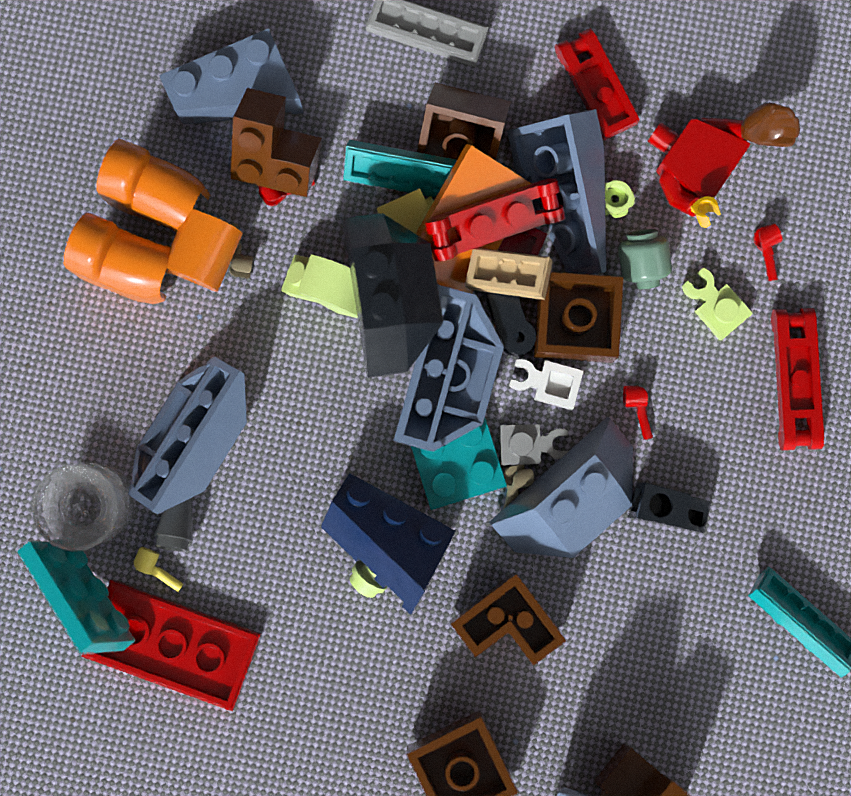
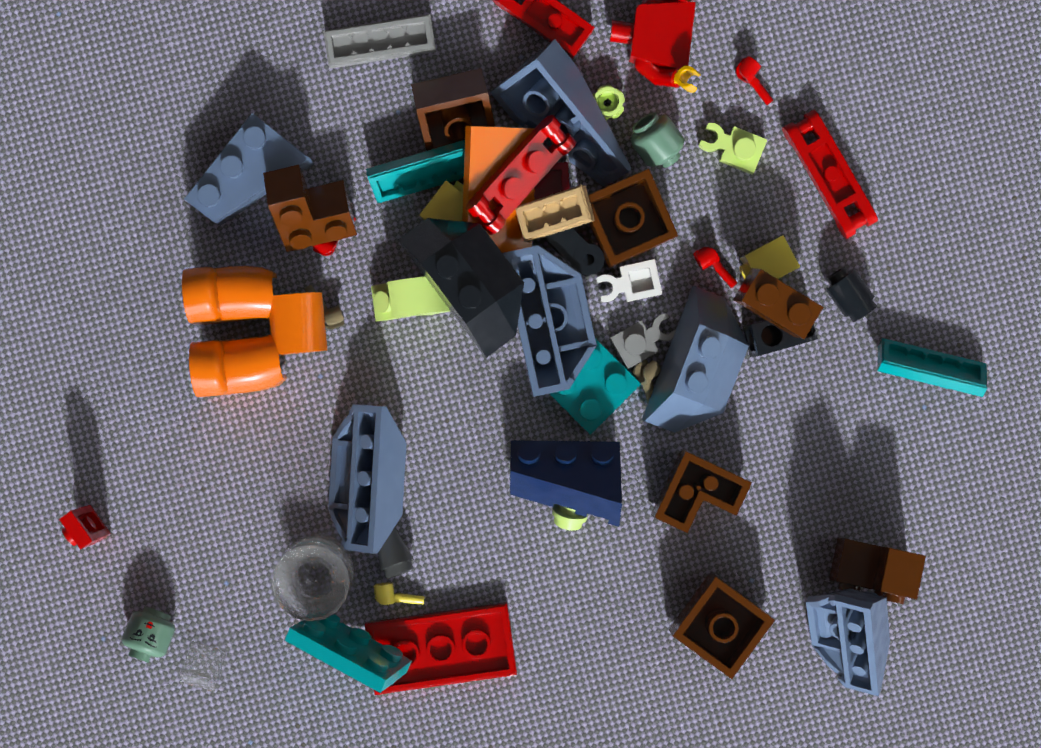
camera: 25 degrees left, 5 degrees up
(684, 474) = (778, 303): none -> reddish brown brick
(693, 433) = (774, 258): none -> light yellow brick
(759, 506) = (850, 293): none -> black brick

